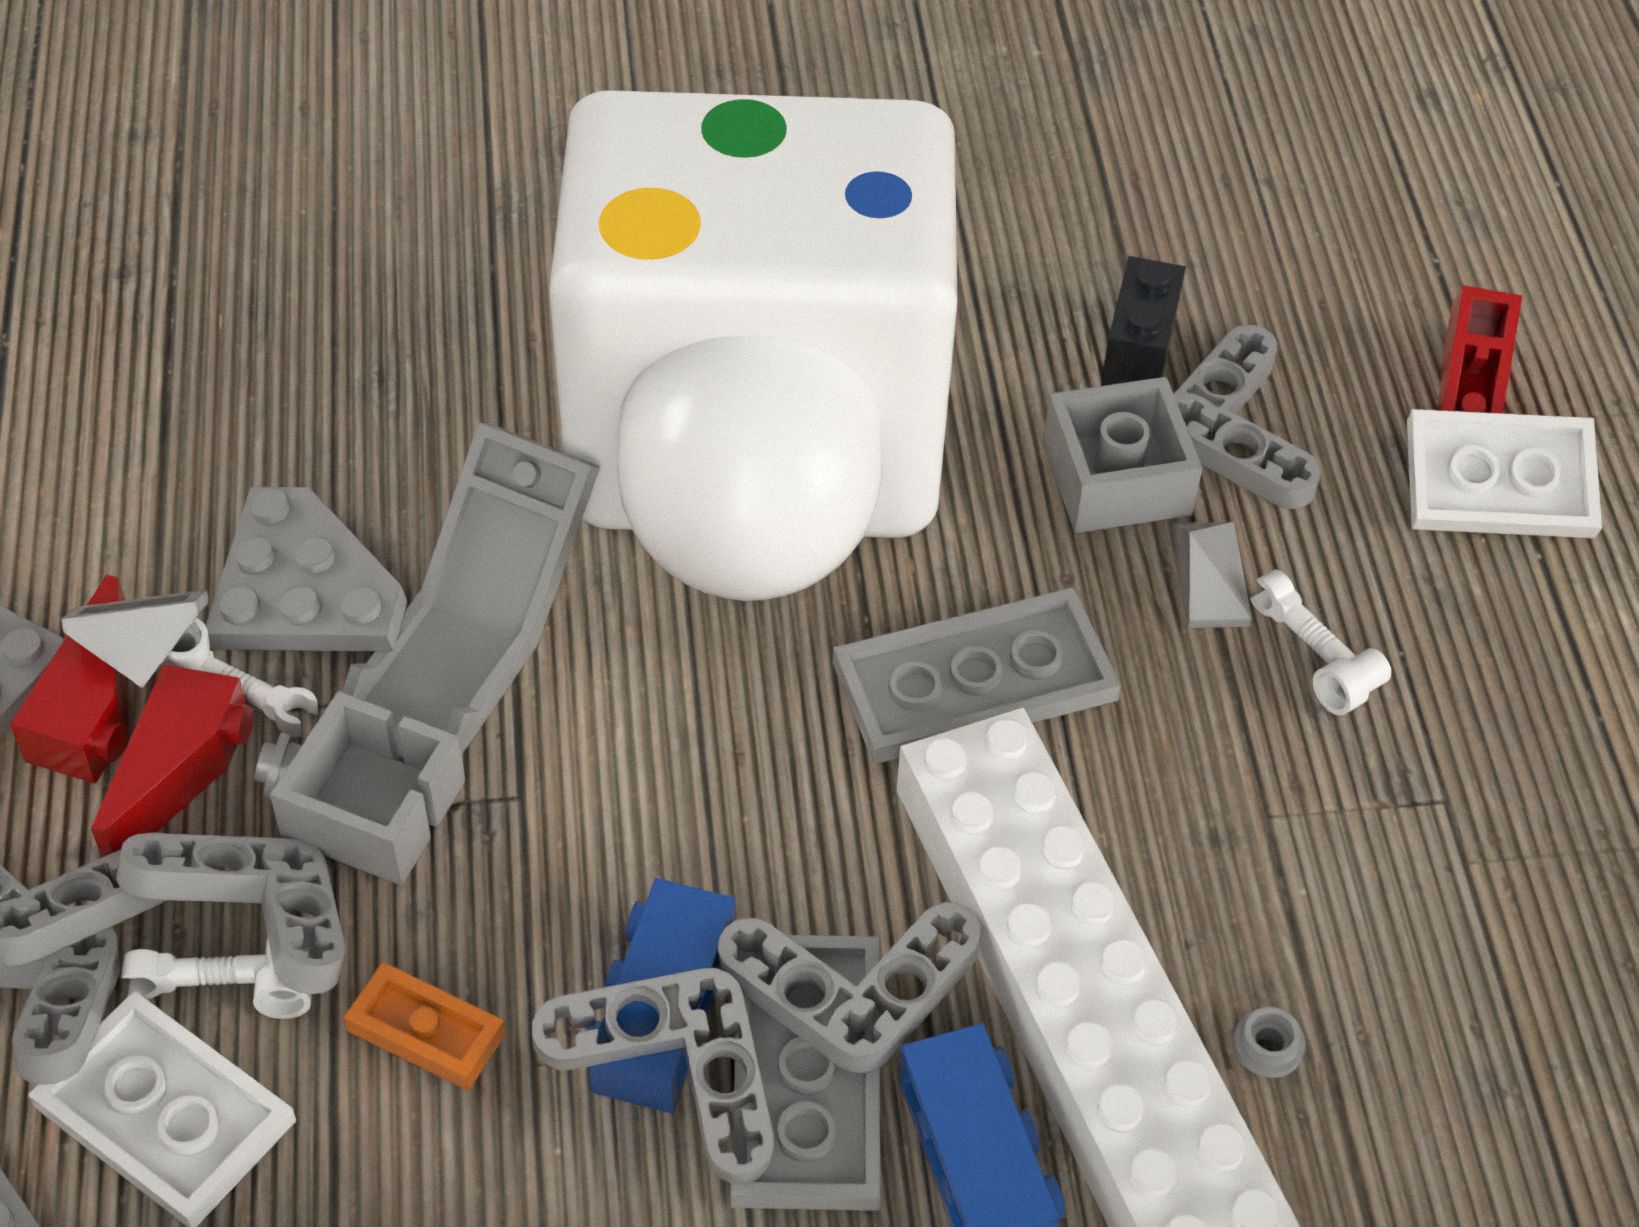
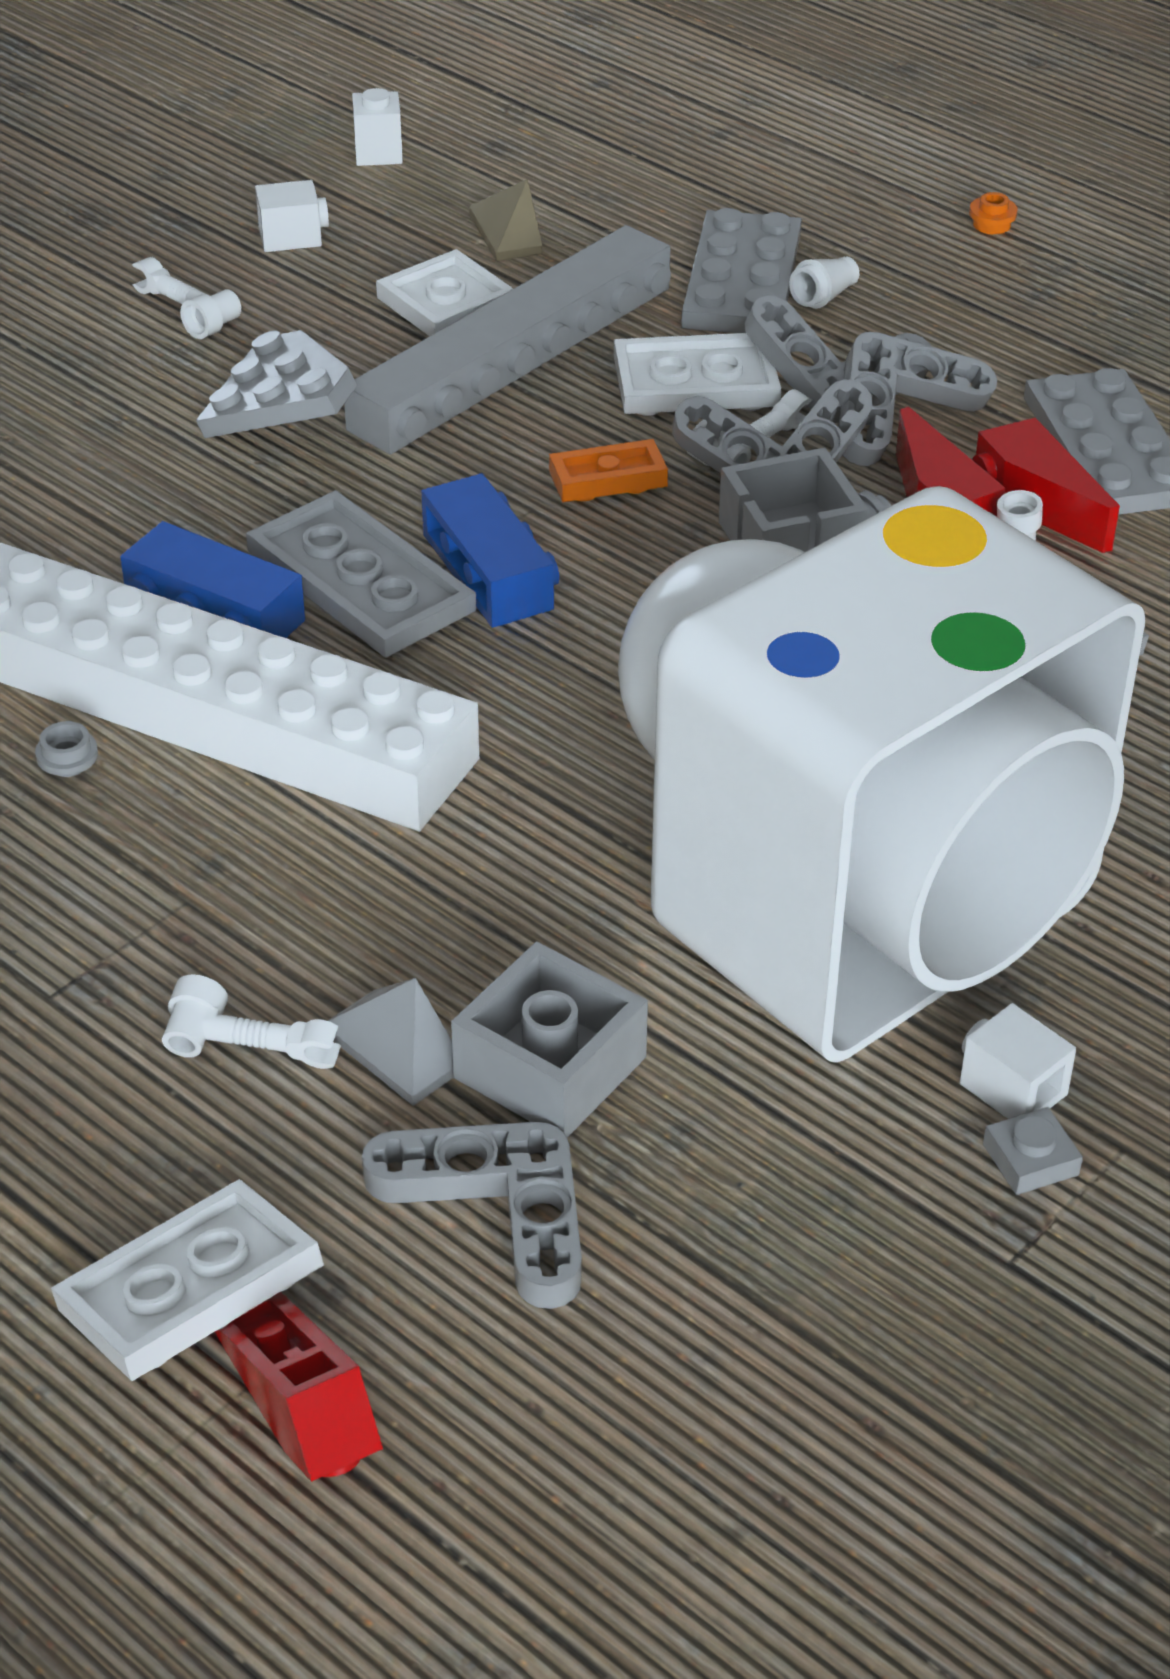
camera: 140 degrees right, 10 degrees down
(136, 632) = (1048, 472): slope -> none
(677, 1028) = (433, 504): light grey beam -> none
(844, 1003) = (429, 574): light grey beam -> none
(975, 668) = (494, 836): light grey plate -> none
(1143, 321) = (664, 1196): black brick -> none

